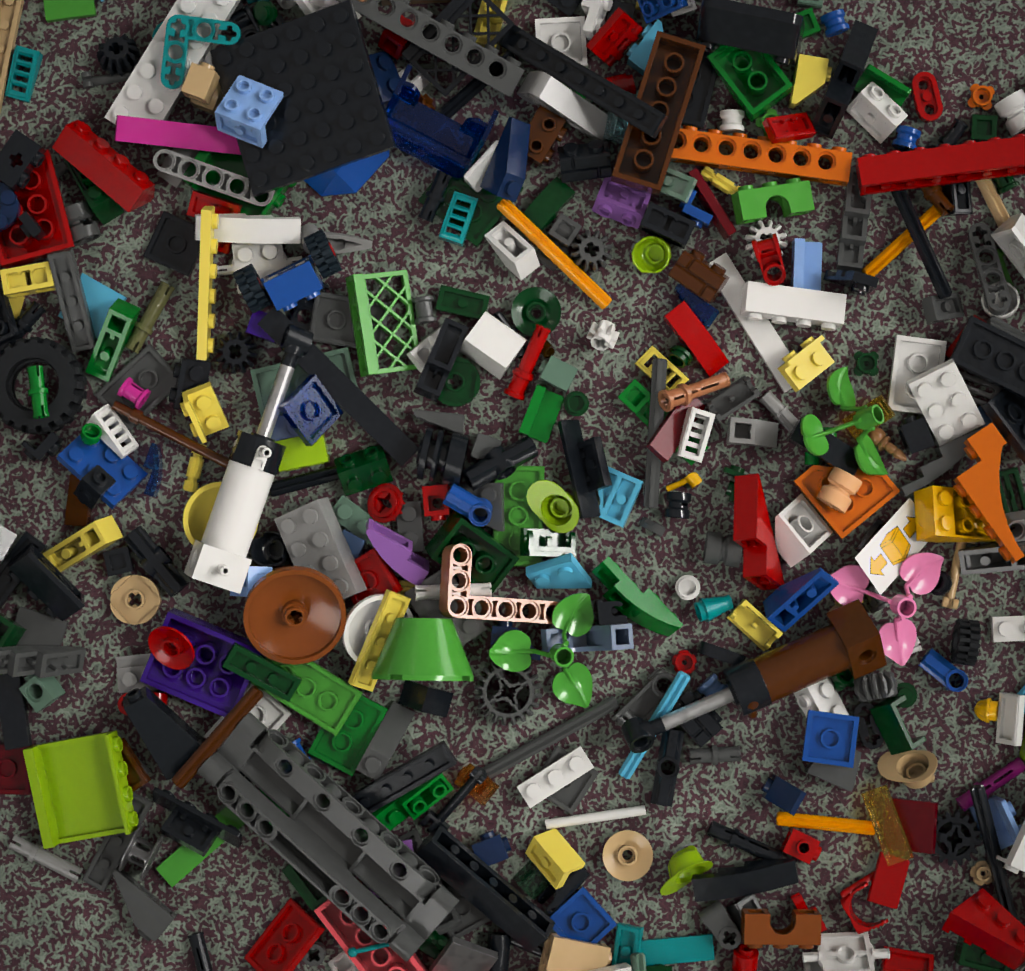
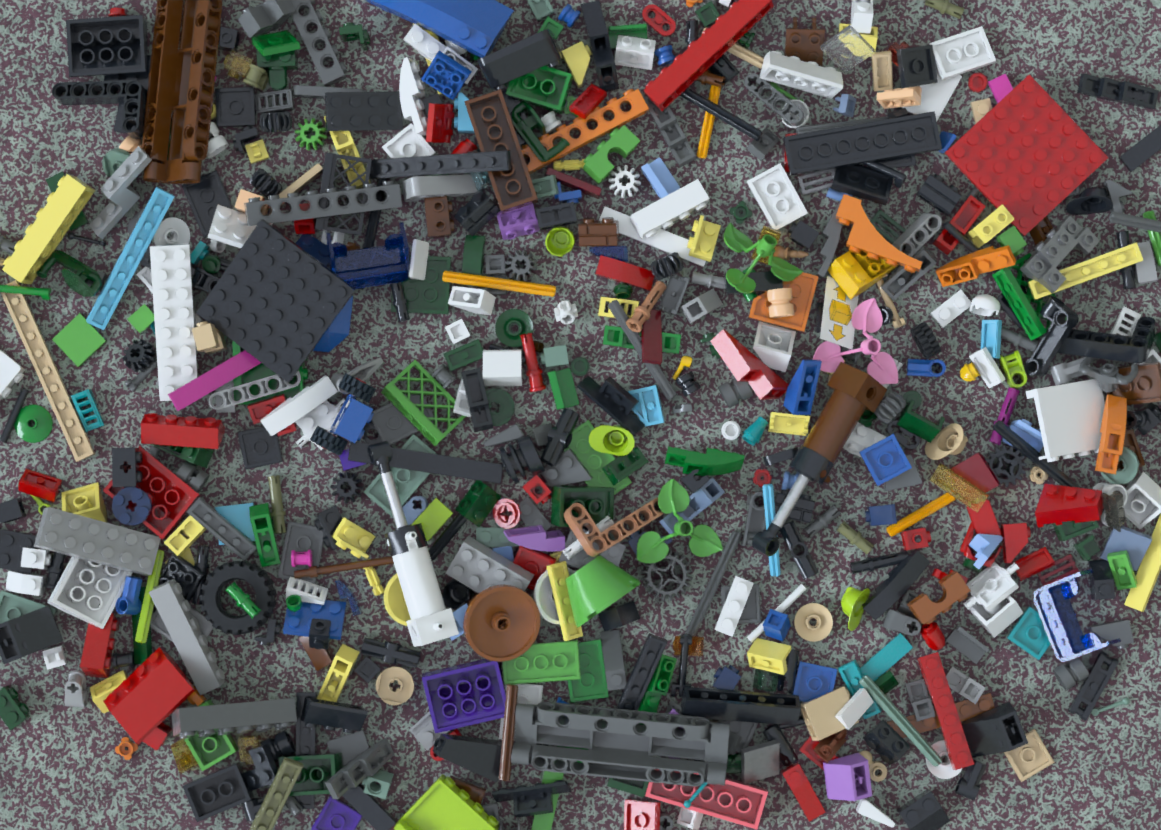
camera: 30 degrees left, 0 degrees up
(31, 227) = (164, 501): black plate -> none
(148, 17) = (141, 318): none -> bright green panel
(171, 647) = (440, 698): red dish -> none
(190, 33) = (176, 311): teal beam -> none
(207, 273) = (294, 451): light yellow plate -> none
(247, 110) = (247, 333): light blue bracket -> none
(261, 671) = (506, 672): dark green plate -> none
(310, 410) = (419, 489): clear blue plate -> none
(450, 237) = (428, 320): teal slope -> none
(466, 503) = (556, 477): blue piece -> none
(473, 272) = (457, 331): none -> white plate
(509, 162) = (431, 249): dark blue slope -> none
(559, 573) = (645, 479): medium azure wing -> none
(586, 830) = (776, 625): none -> blue panel
(686, 432) = (673, 330): white slope -> none
(700, 109) = (525, 130): none -> dark green piece
(737, 797) = (855, 537): none -> olive pin
(746, 363) = (666, 266): none -> black gear
(769, 255) = (633, 190): red piece -> none
(841, 918) = (968, 563): none -> dark green tile
(857, 281) = (698, 166): black wing -> none
(869, 909) = (984, 545): none -> light blue slope
(905, 923) = (1014, 539): none -> red slope
(945, 402) = (807, 201): white plate -> none

